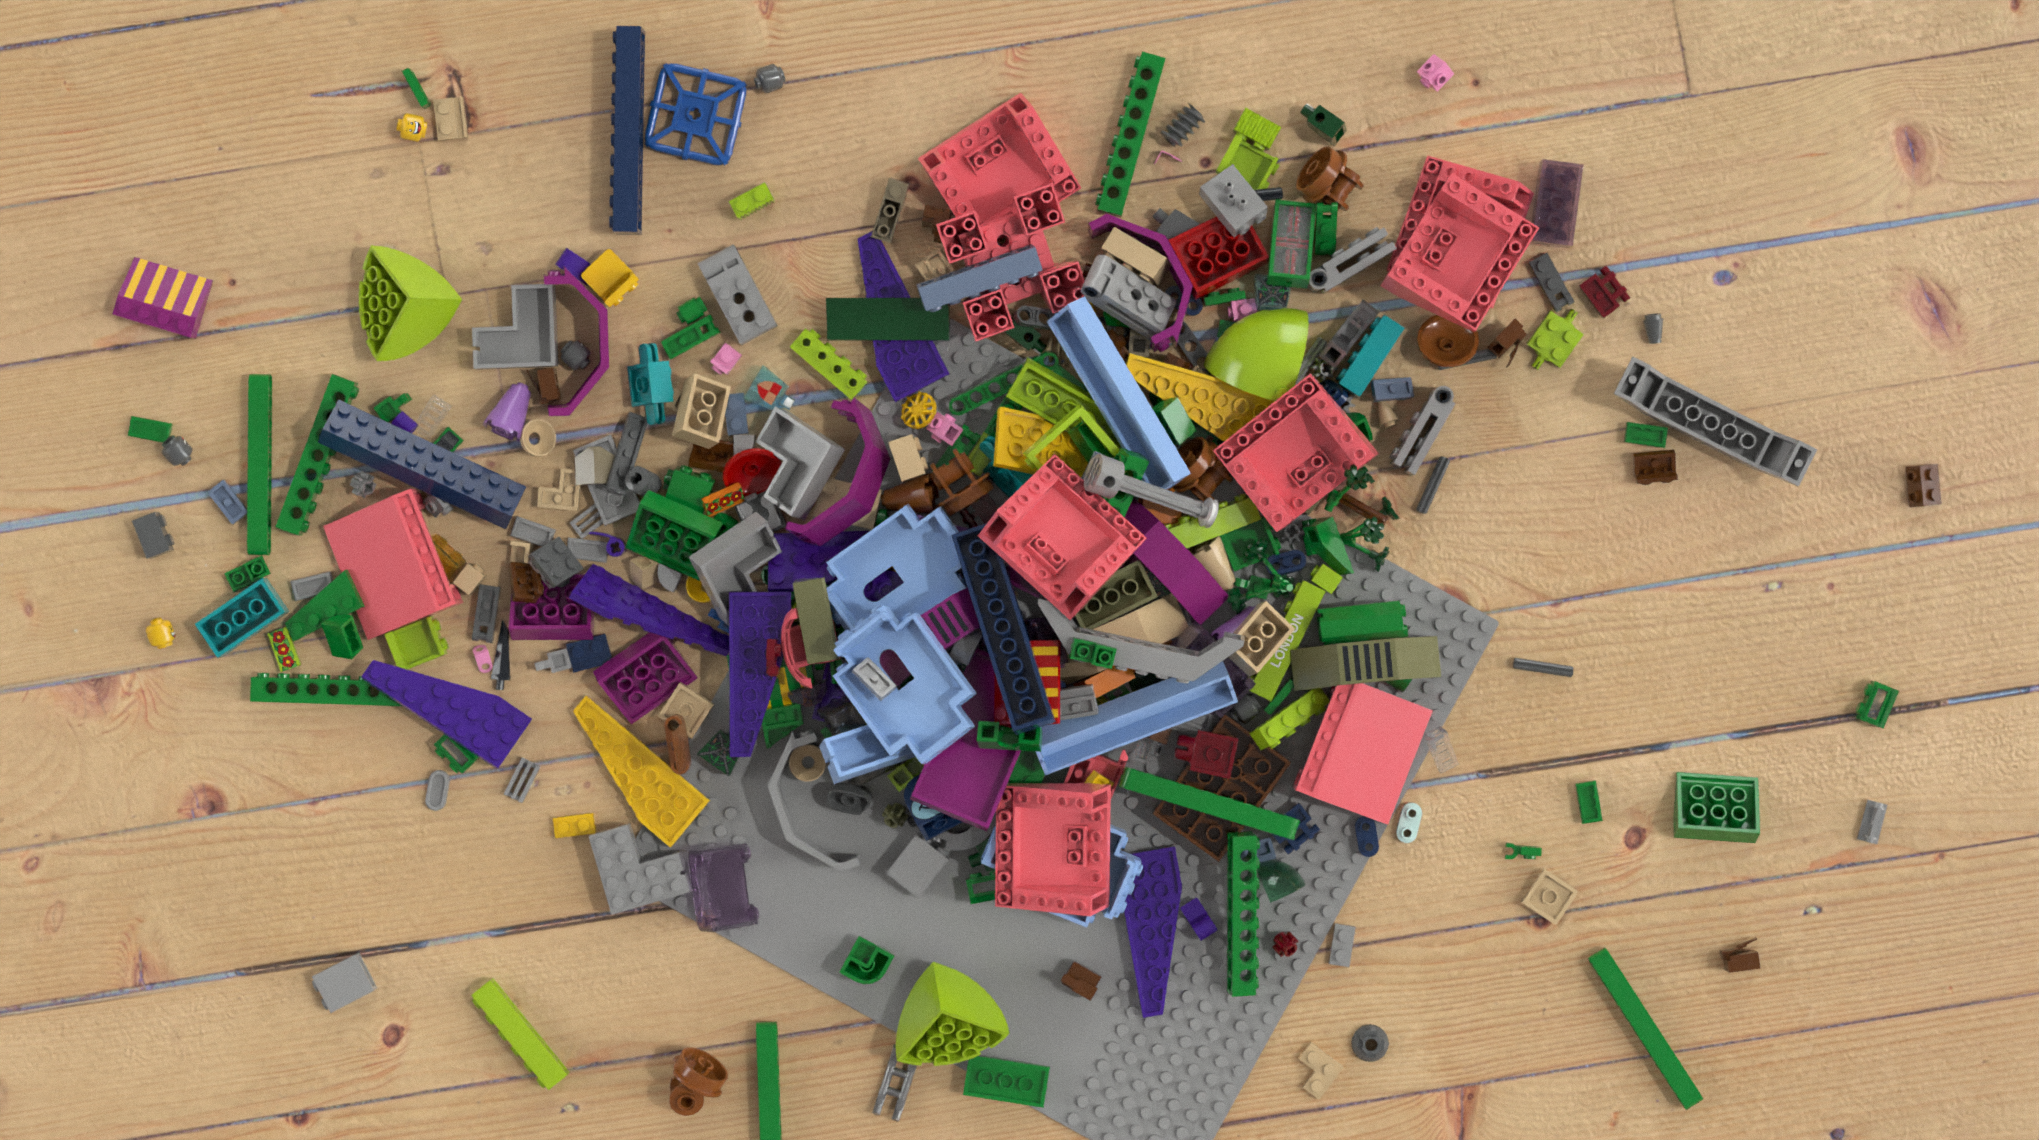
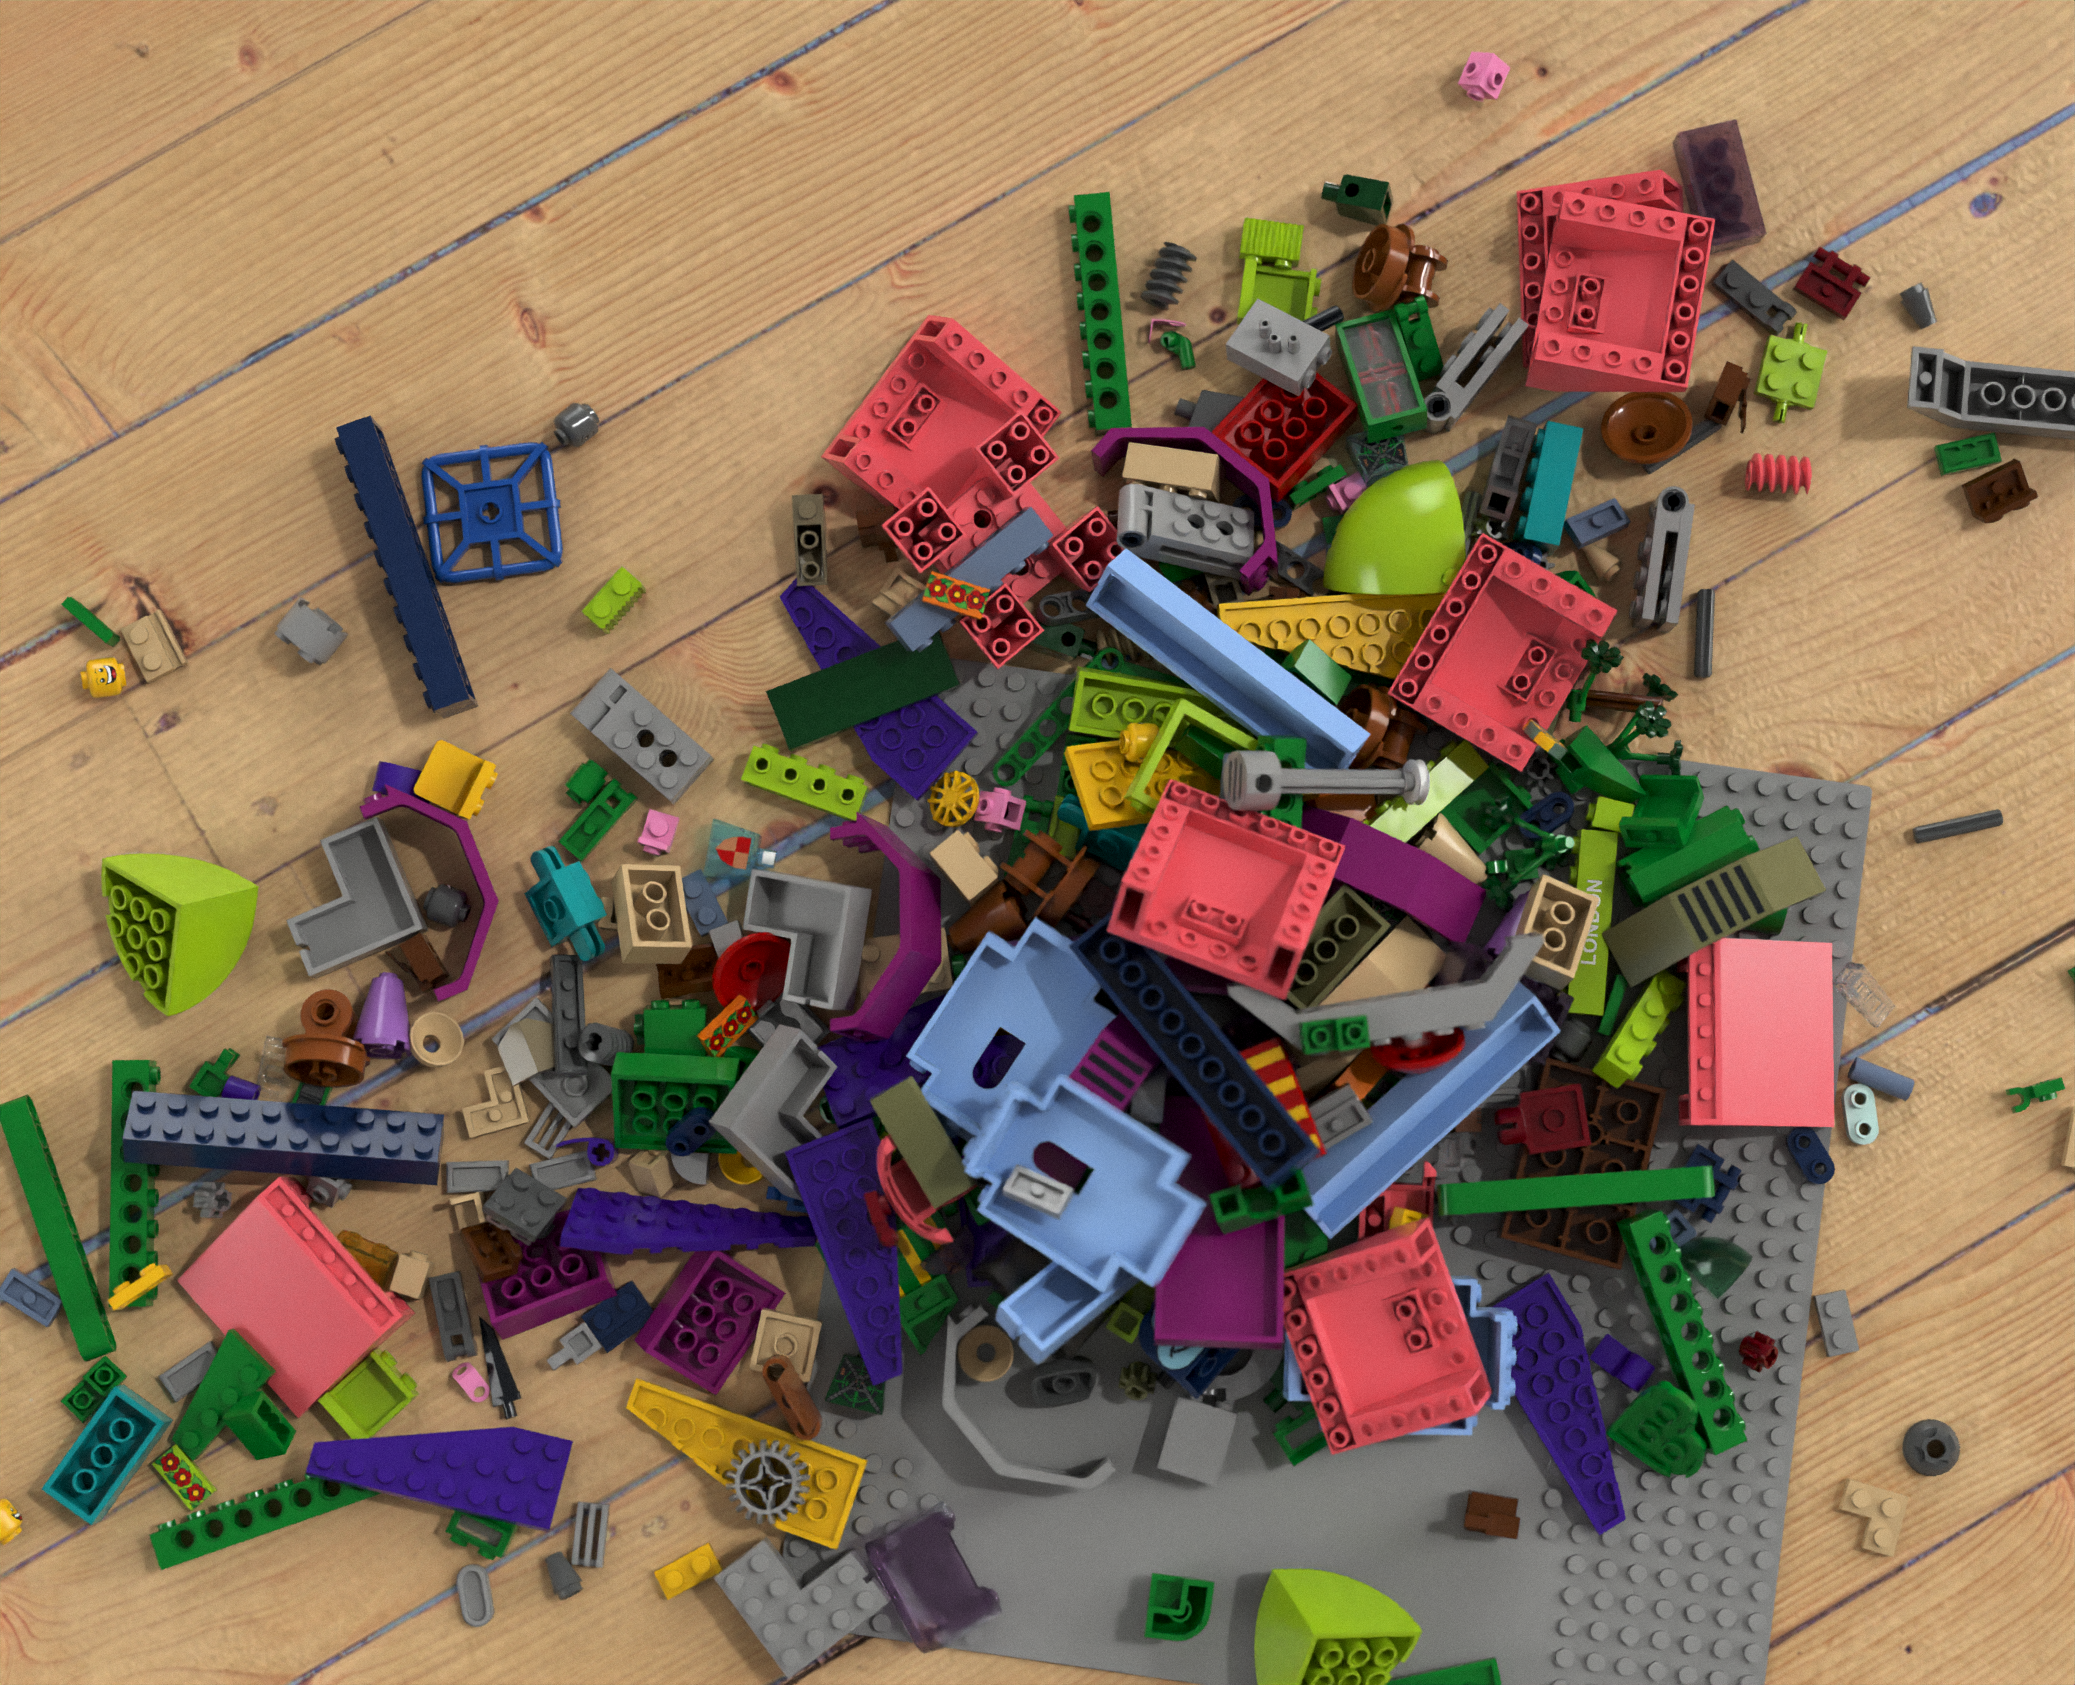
camera: 15 degrees left, 5 degrees down
(307, 519) = (128, 1293): none -> yellow plate
(468, 419) = (326, 1051): none -> dark orange piece
(496, 801) = (563, 1576): none -> dark grey cone
(553, 149) = (311, 631): none -> light grey brick
(641, 799) = (768, 1495): none -> light grey gear
(672, 557) = (688, 1133): none -> dark blue plate
(966, 286) = (955, 595): none -> tile
(1046, 419) = (1137, 740): none -> yellow head
(1143, 685) = (1420, 1054): none -> red dish
(1173, 173) = (1181, 346): none -> green arm
(1205, 969) = (1660, 1430): none -> green plate
(1300, 516) = (1544, 739): none -> piece
(1358, 590) = (1664, 813): none -> green panel
(1430, 806) = (1881, 1079): none -> sand blue piece
(1520, 401) = (1778, 472): none -> coral piece

